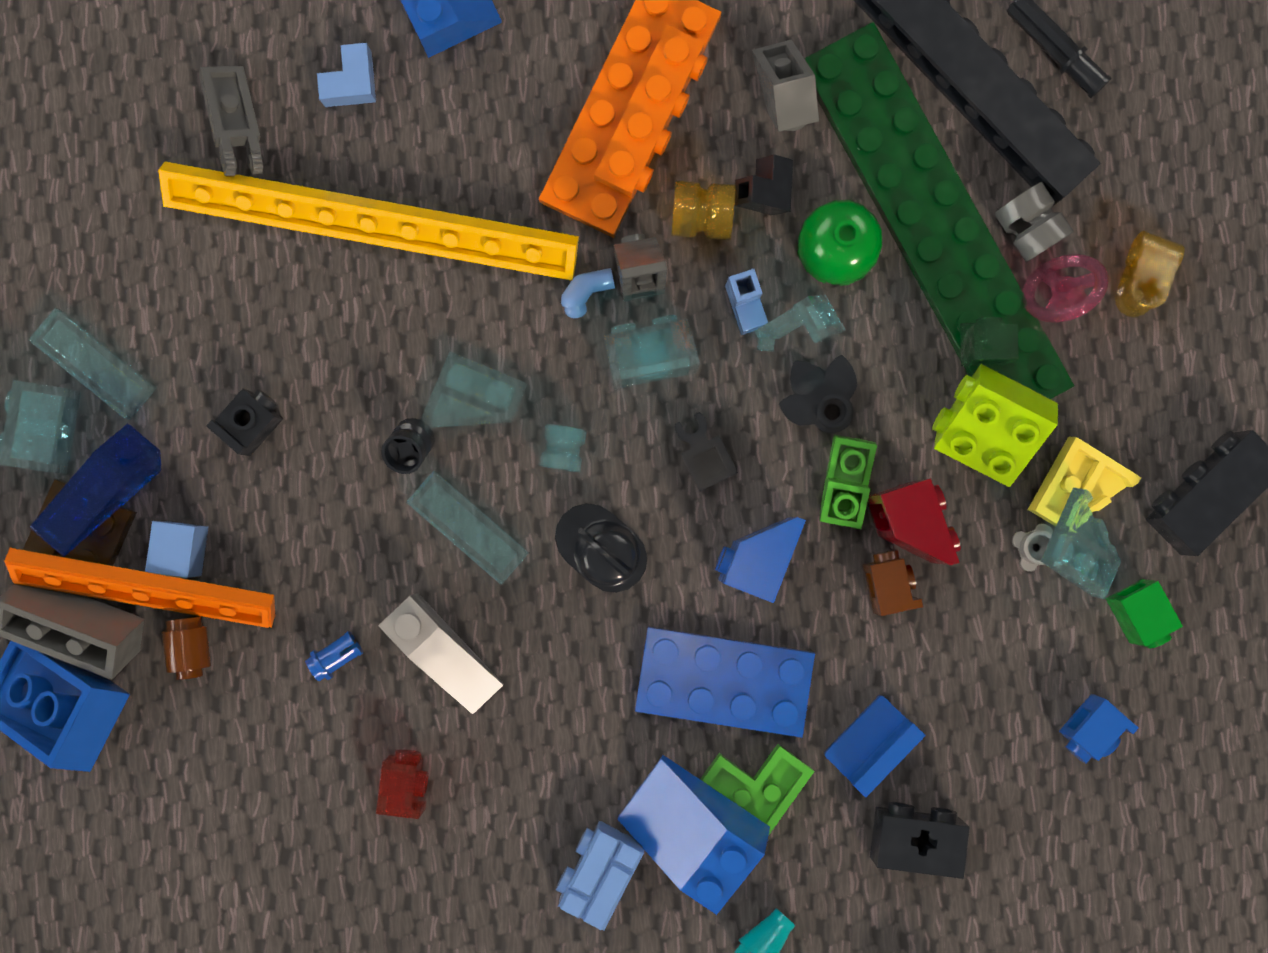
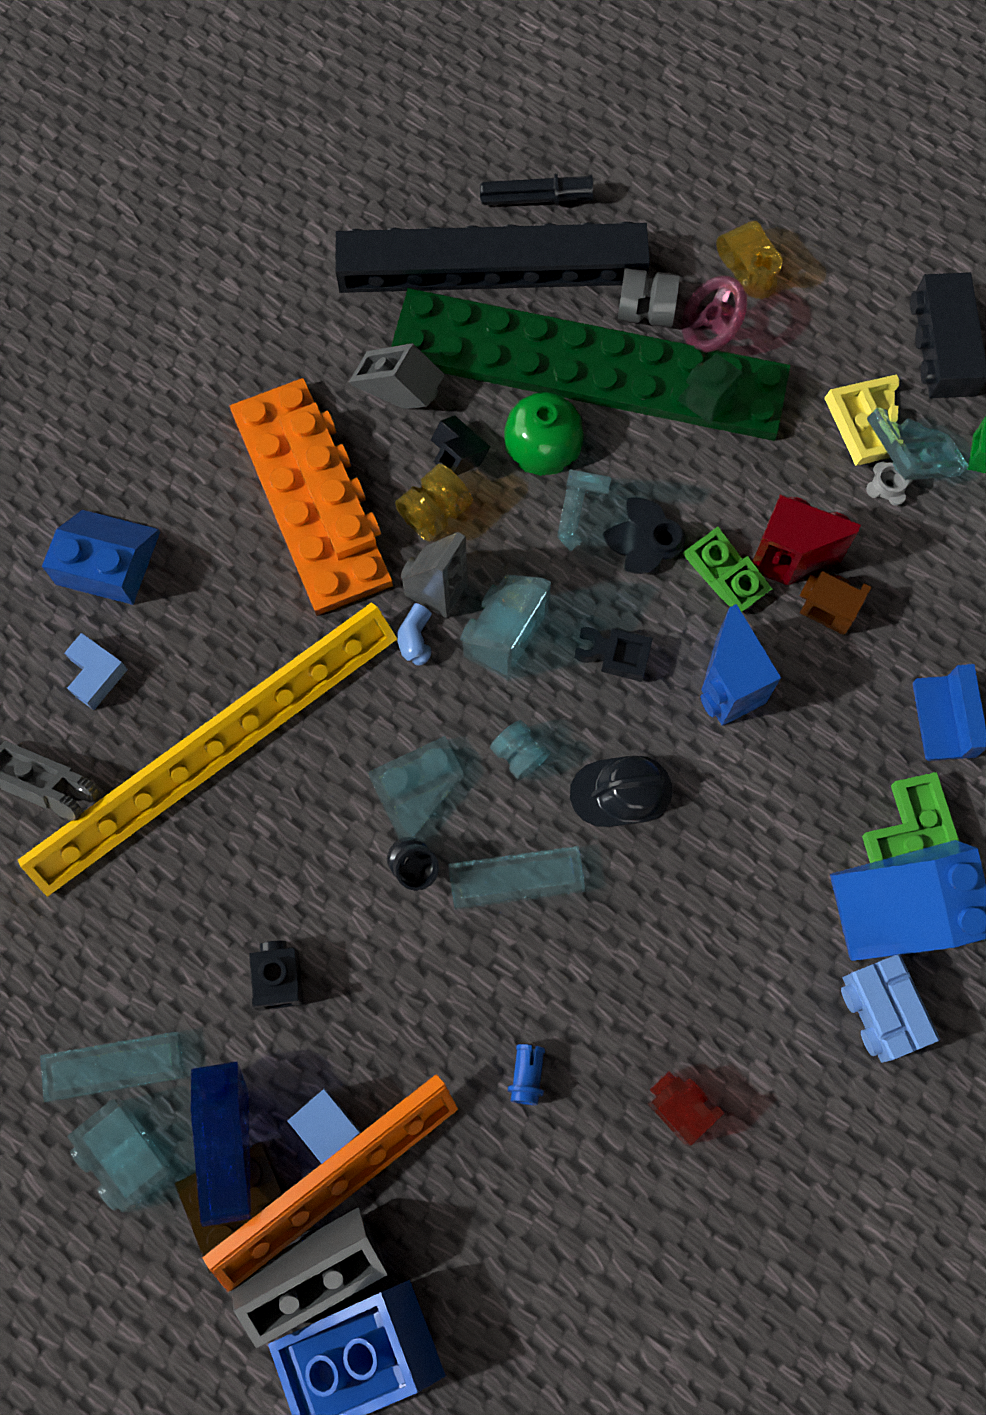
camera: 50 degrees left, 15 degrees down
(186, 647) = (413, 1193): reddish brown brick -> none
(440, 652) = (600, 982): slope -> none
(725, 681) = (807, 785): blue plate -> none
(745, 300) = (526, 530): medium blue piece -> none
(995, 425) = (775, 432): lime brick -> none

